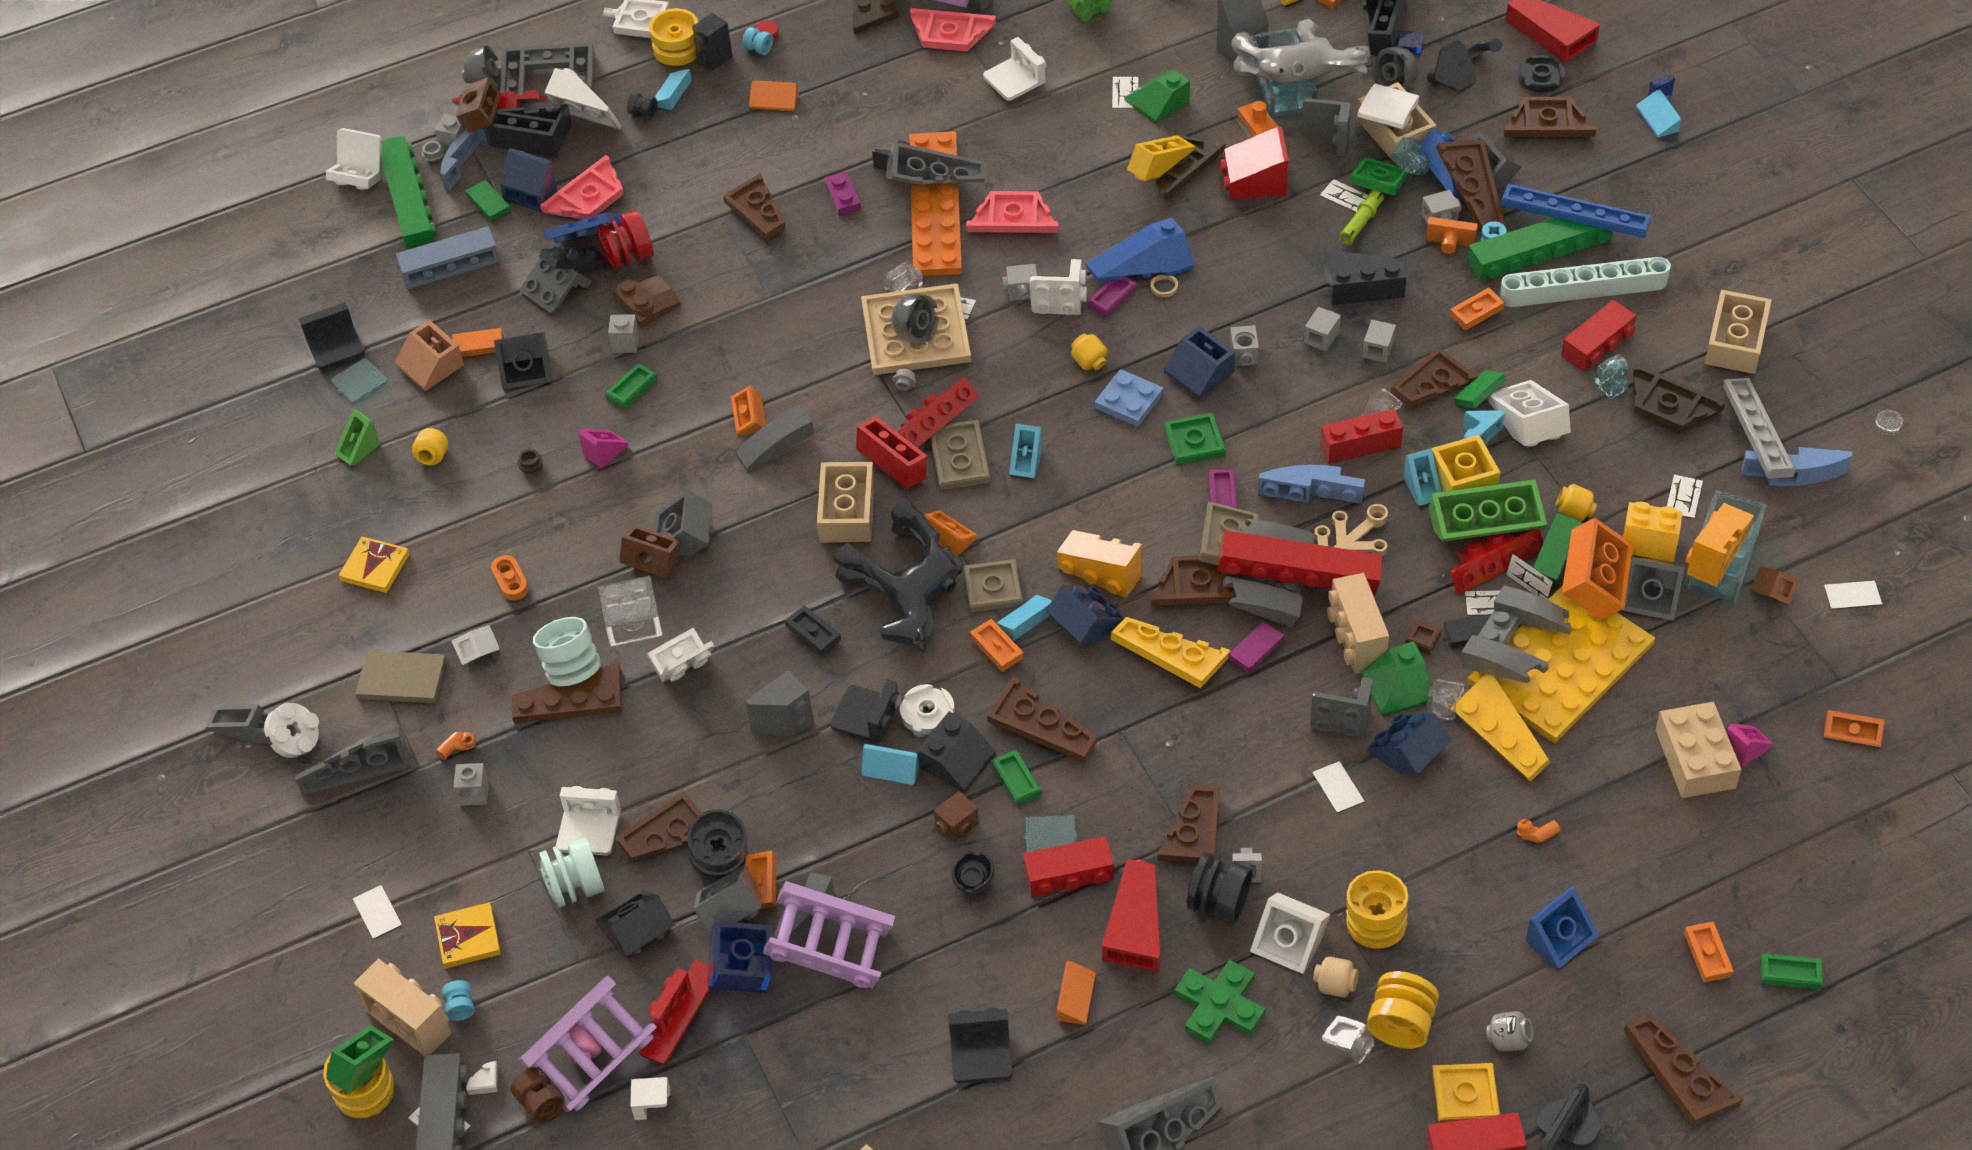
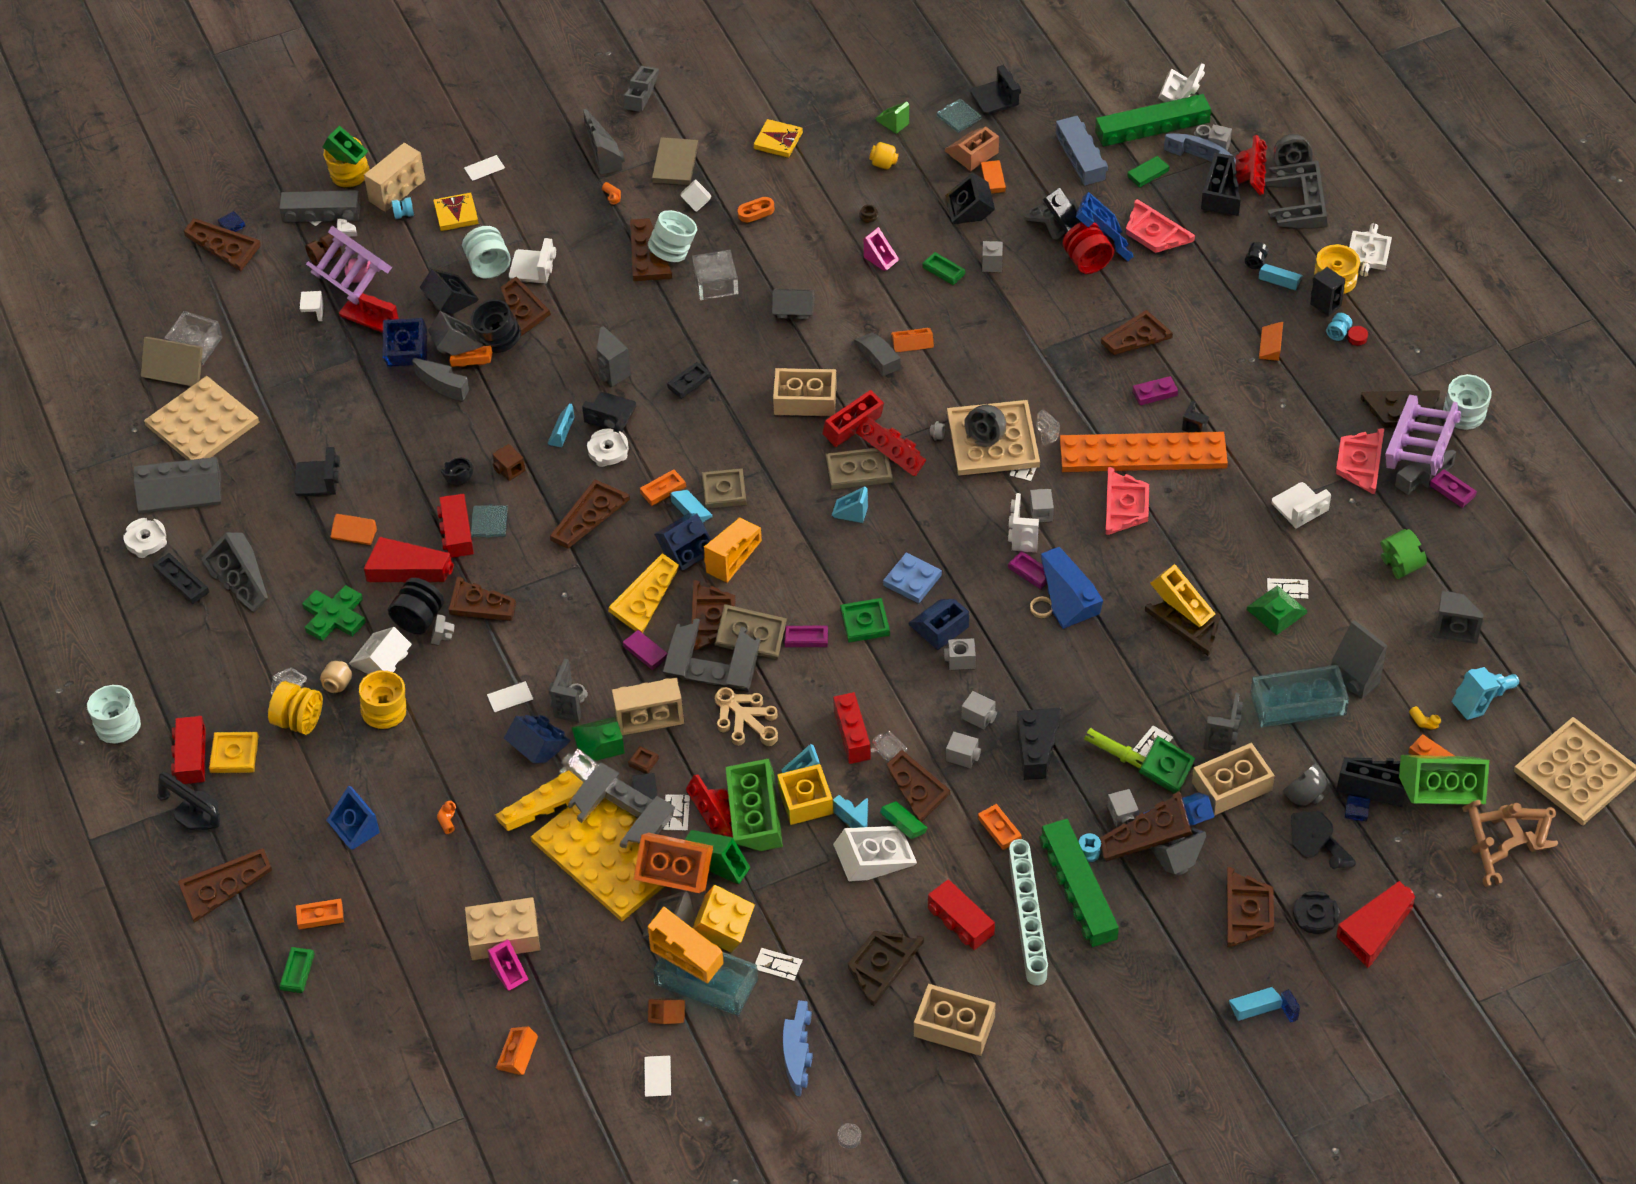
camera: 90 degrees right, 0 degrees up
(304, 723) = (616, 101): white plate -> none
(471, 784) = (572, 200): light grey brick -> none
(478, 105) = (1233, 143): reddish brown brick -> none
(527, 180) = (1160, 187): dark blue slope -> none
(582, 102) = (1249, 210): white slope -> none
(646, 299) = (1034, 270): reddish brown slope -> none
(650, 551) = (767, 280): reddish brown brick -> none
(680, 654) = (669, 304): white bracket -> none
(844, 912) = (425, 397): lavender fence -> none
(915, 585) = (717, 434): black animal -> none
(928, 166) = (1163, 432): dark grey wedge -> none
(951, 532) = (781, 461): orange slope -> none
(955, 752) = (565, 461): black slope -> none
(1016, 777) = (543, 500): green tile -> none
(1089, 352) = (958, 548): yellow head -> none
(1256, 118) = (1240, 682): orange tile -> none
(1256, 166) = (1174, 672): slope -> none
(1294, 561) = (708, 668): red brick -> none
(1299, 61) = (1286, 697): light grey animal -> none
(1302, 481) = (804, 692): medium blue slope -> none
(1388, 106) = (1233, 759): white slope -> none
(1409, 157) = (1186, 784): clear light blue leg -> none
(1451, 233) = (1091, 813): orange tile -> none
(1510, 1031) = (271, 776): light grey head -> none
(1529, 577) = (699, 825): white sticker -> none
(1576, 210) = (1104, 903): blue tile -> none
(1576, 502) = (767, 874): yellow head -> none
(1611, 376) = (910, 918): clear light blue leg -> none
(1759, 428) = (835, 1017): light grey tile -> none

